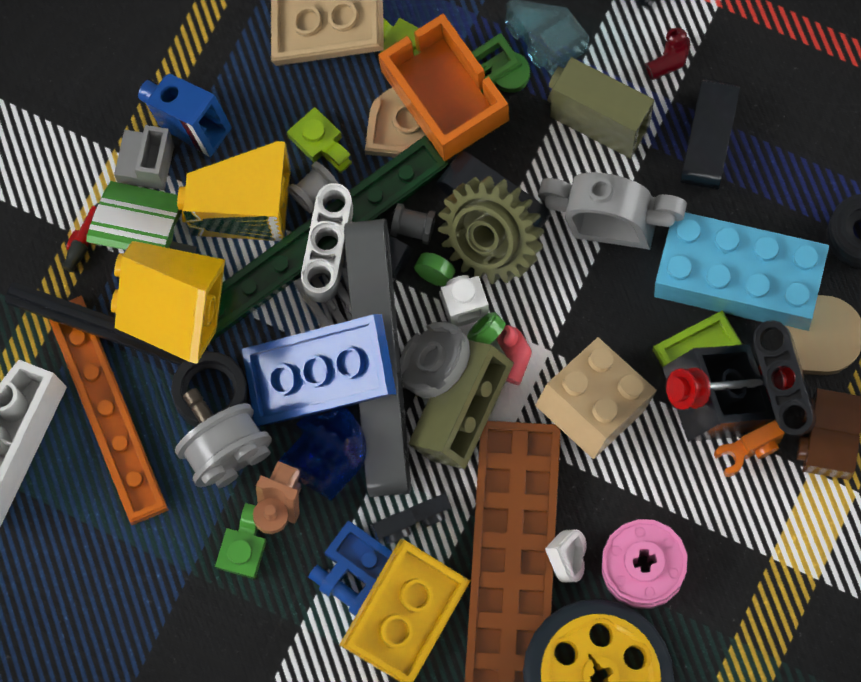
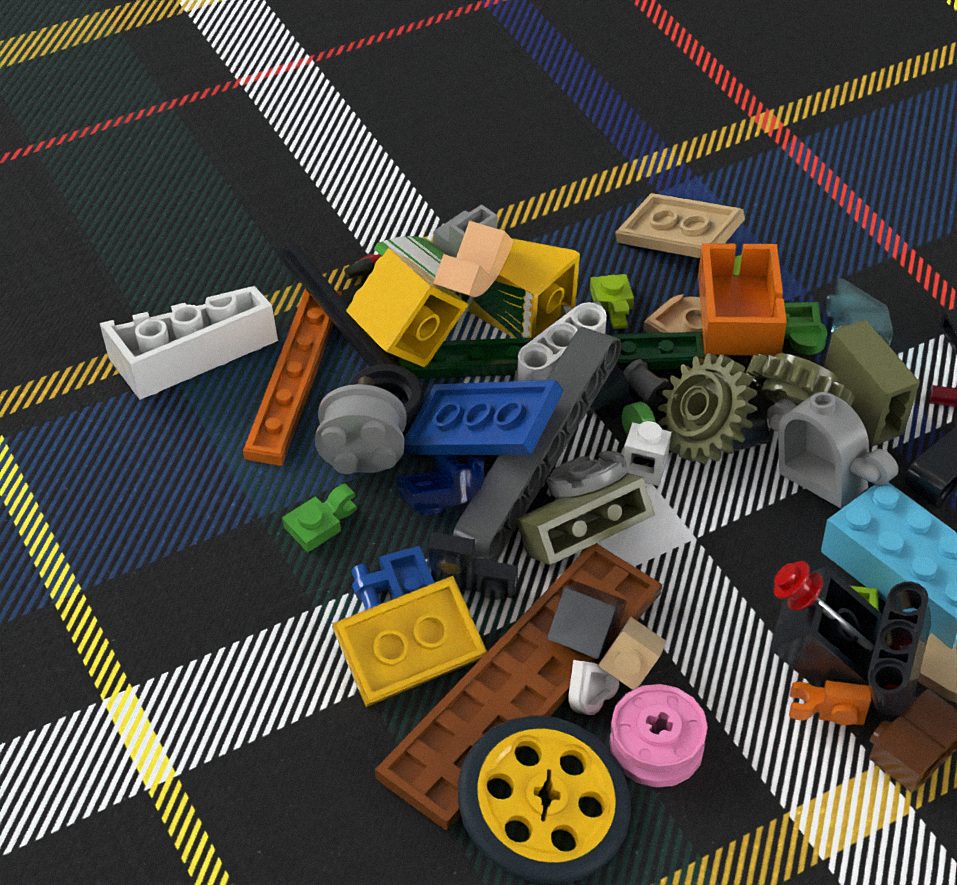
camera: 30 degrees right, 25 degrees down
(187, 112) = (523, 212): blue torso -> none
(212, 226) = (477, 261): none -> light nougat brick
(277, 499) = (374, 490): nougat hips -> none
(486, 328) = (656, 481): bright green tile -> none
(517, 350) = (665, 518): coral arm -> none
(532, 506) = (586, 619): none -> black piece
(551, 155) = (794, 378): none -> olive gear
(584, 510) = (632, 653): none -> tan brick
(595, 397) = (709, 577): tan brick -> none

